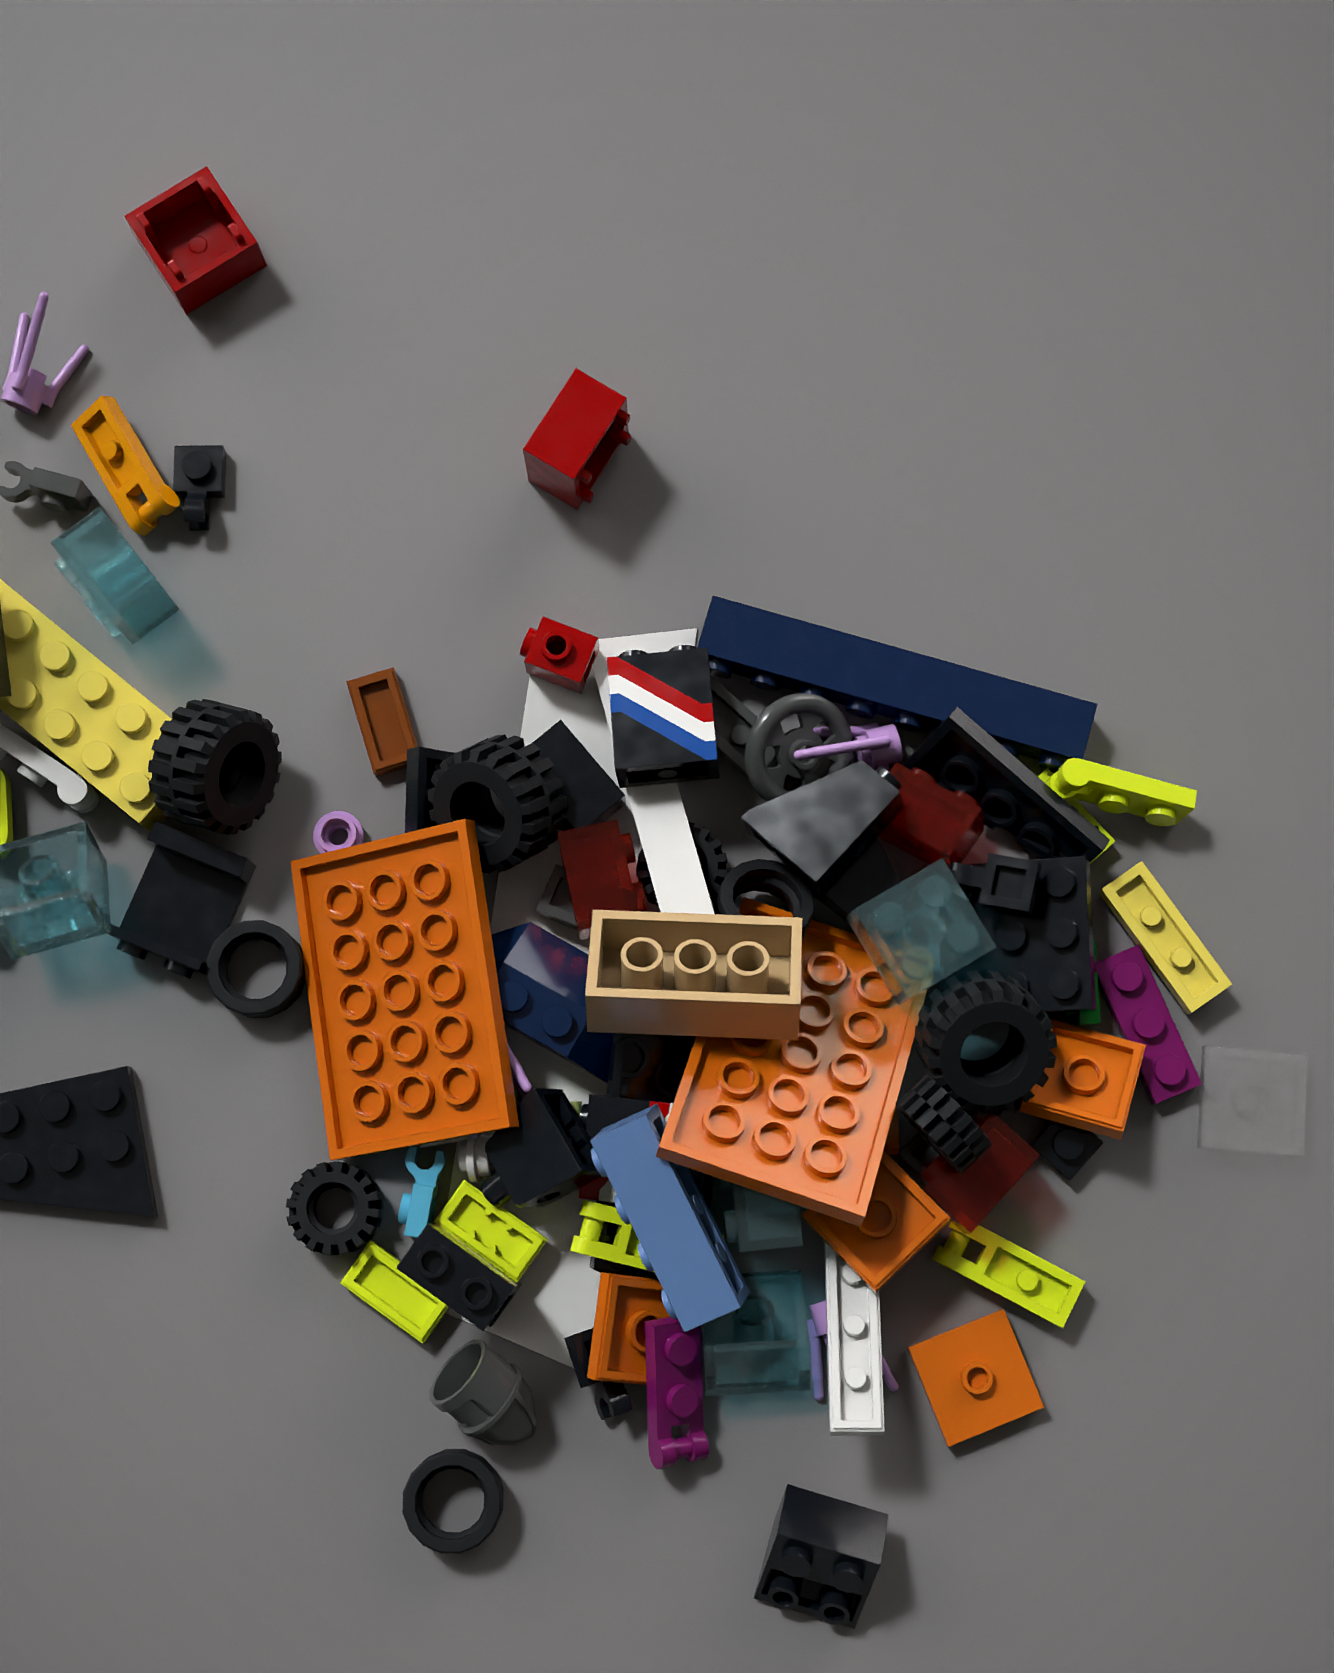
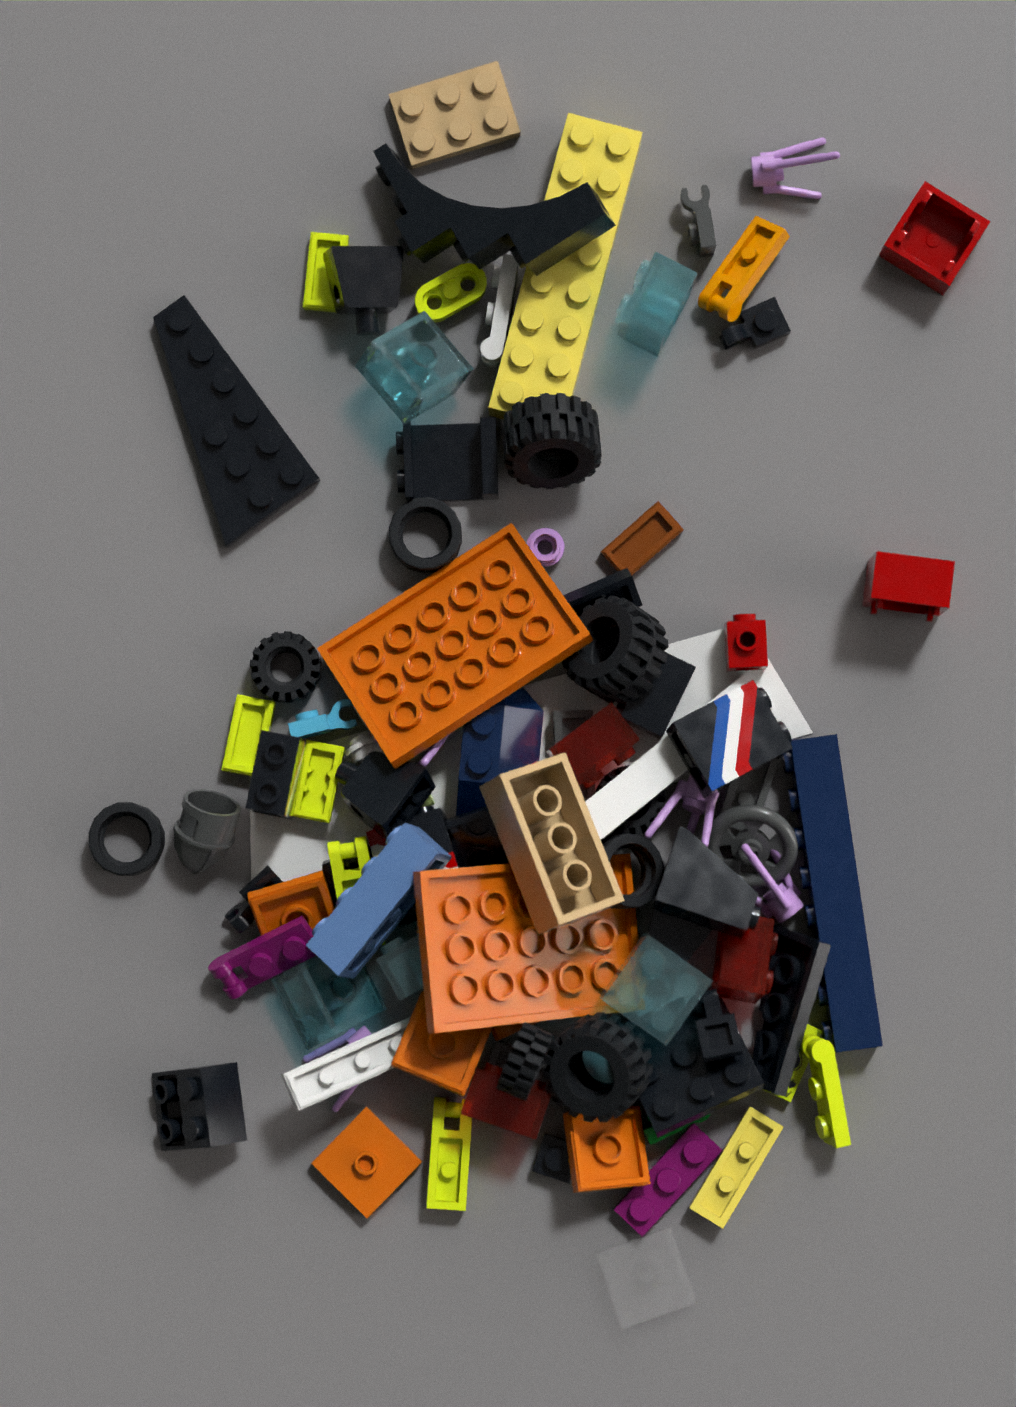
camera: 70 degrees right, 5 degrees up
(718, 794) = (693, 802): none -> lavender plant

